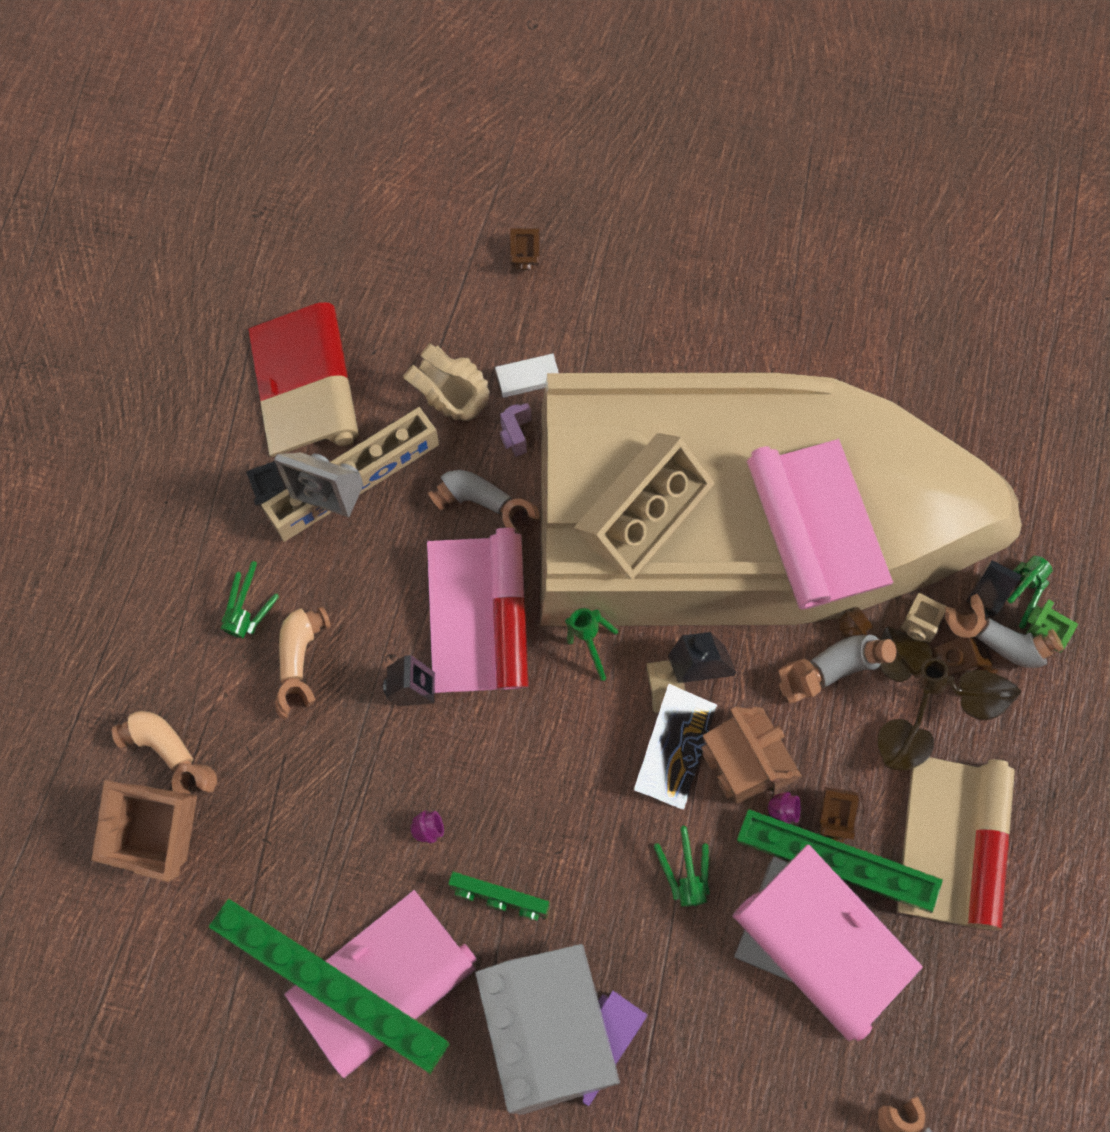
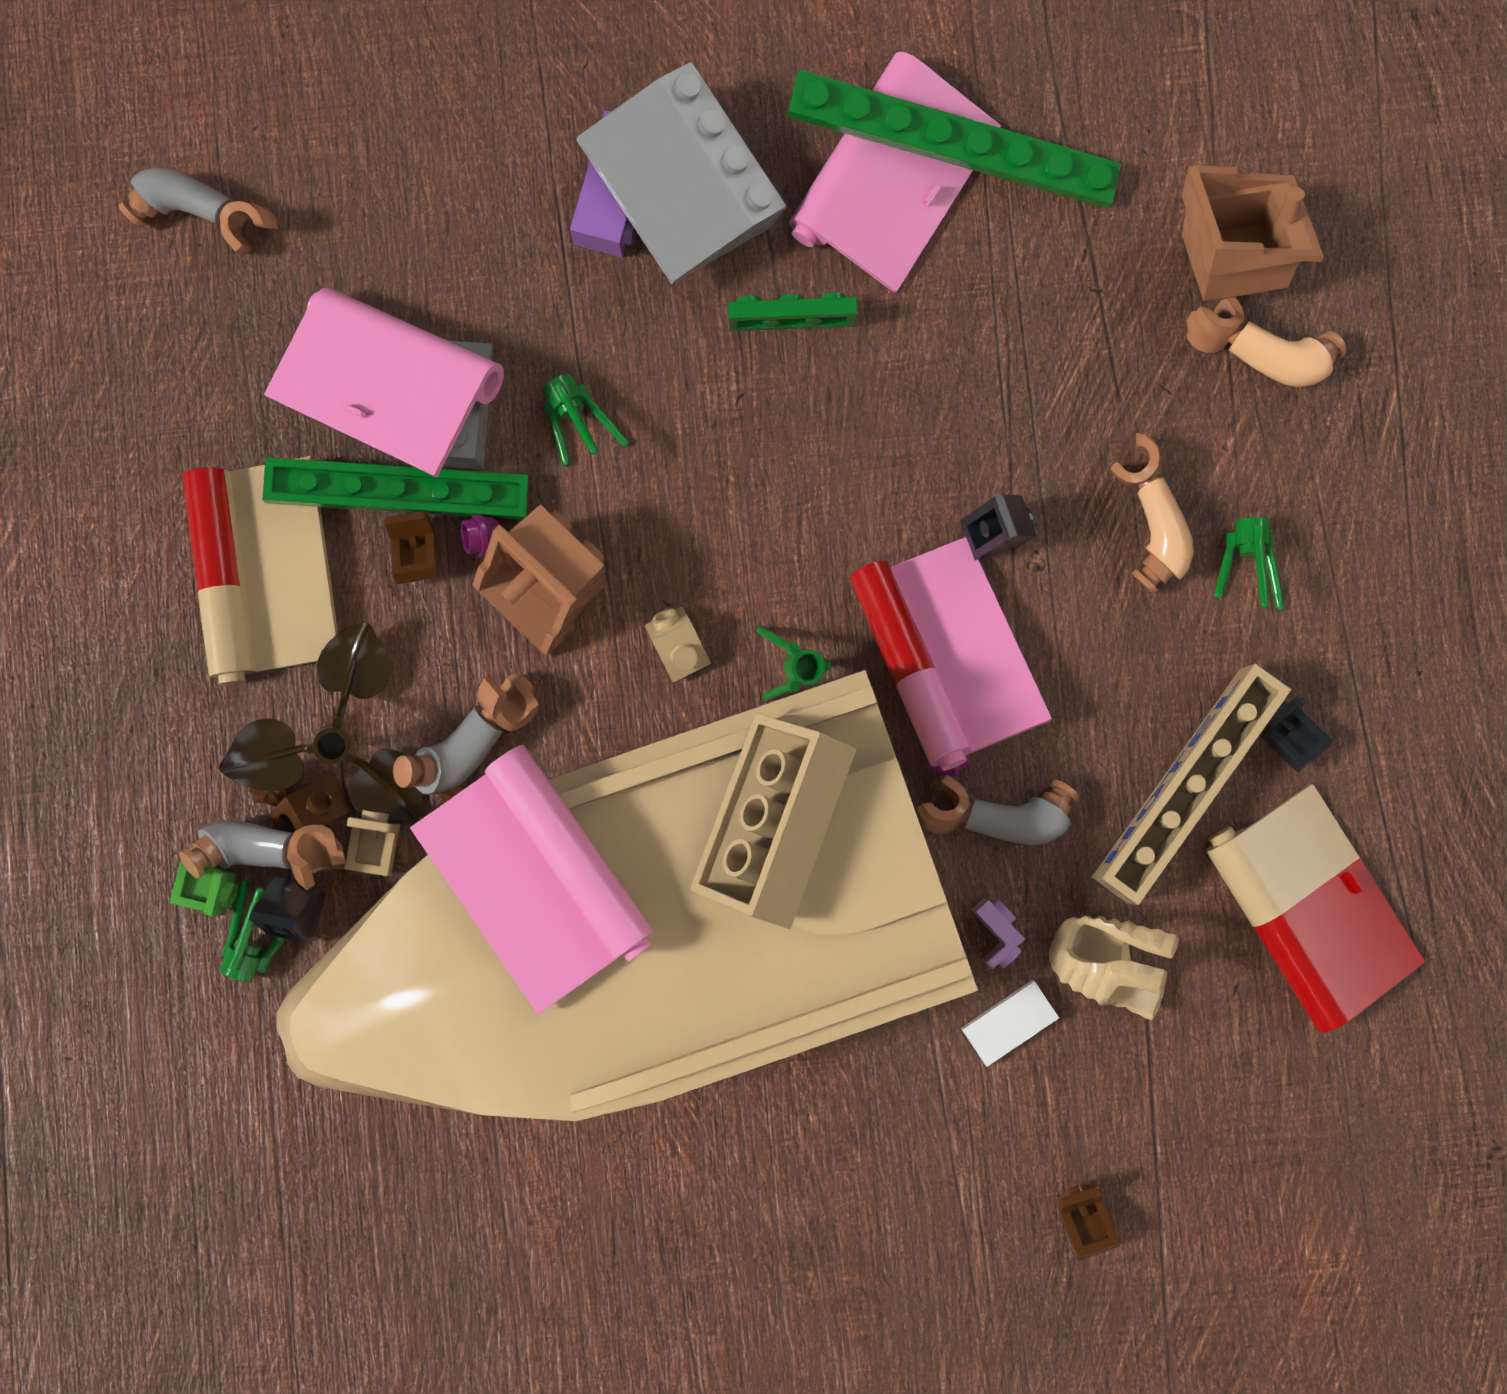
camera: 160 degrees right, 15 degrees up
(320, 482) = (1228, 734): light grey slope -> none
(427, 827) = (908, 365): magenta plate -> none
(675, 747) = (638, 564): sticker -> none
(700, 658) = (640, 683): black slope -> none

